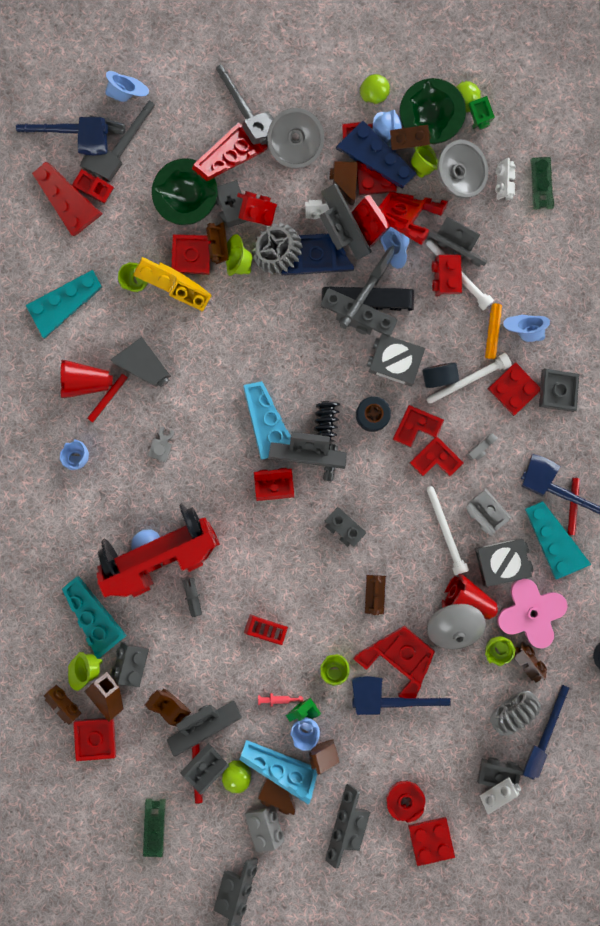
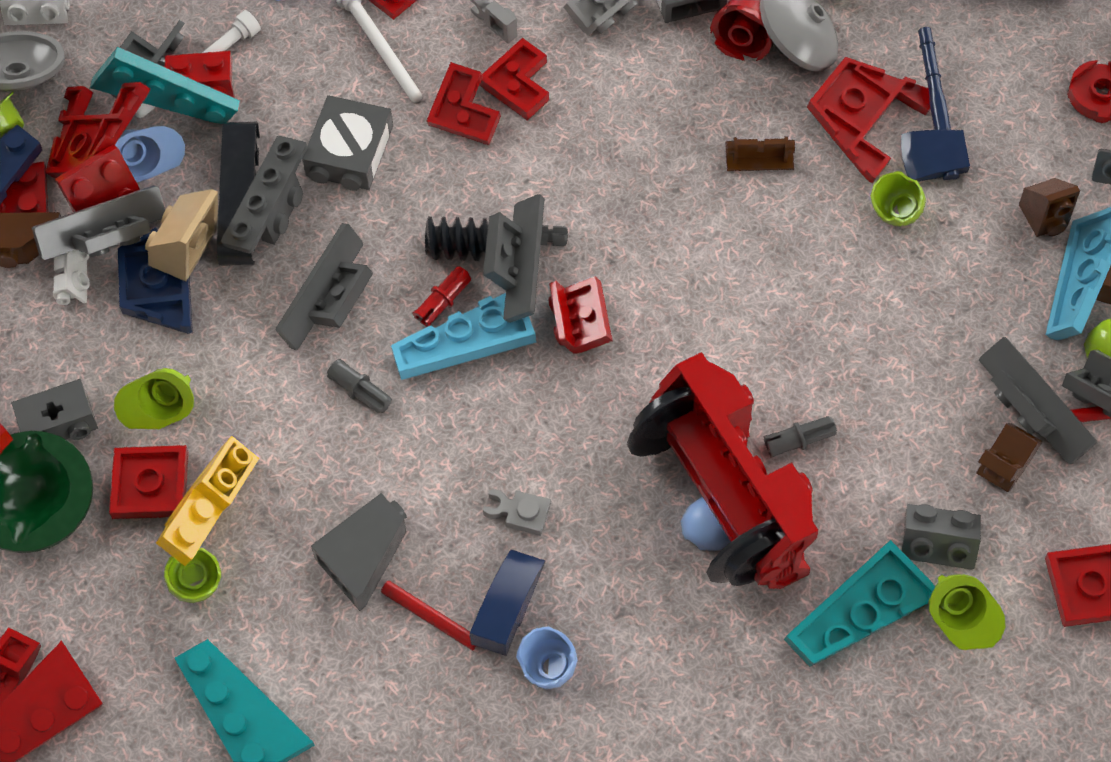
camera: 85 degrees left, 25 degrees down
(68, 710) = (1027, 657): reddish brown hinge -> none
(82, 379) = (397, 657): red cone -> none
(106, 696) = (1005, 565): reddish brown slope -> none
(108, 436) = (506, 602): none -> dark blue slope
(219, 249) = (128, 432): reddish brown hinge -> none
(240, 364) = (359, 386): none -> dark grey axle
(250, 623) = (840, 336): red slope -> none
(257, 209) = (68, 363): red bracket -> none
(277, 699) = (966, 295): coral piece -> none
(287, 249) = (119, 340): light grey gear -> none
(292, 410) = (442, 296): none -> red axle
(300, 349) = (328, 290): none -> dark grey bracket
(303, 740) = (1018, 227): light blue hair -> none
(304, 709) = (976, 242): green bracket -> none
(332, 266) = (184, 233): none -> tan slope
(348, 529) = (648, 198): dark grey bracket -> none
(374, 278) = (190, 173): dark grey piece -> none
(377, 409) = (444, 171): black wheel -> none
(431, 251) = (167, 88): none -> teal wing
(440, 375) = (373, 74): black wheel -> none
(458, 565) = (696, 38): white piece -> none
(493, 331) = (296, 13): light orange axle -> none

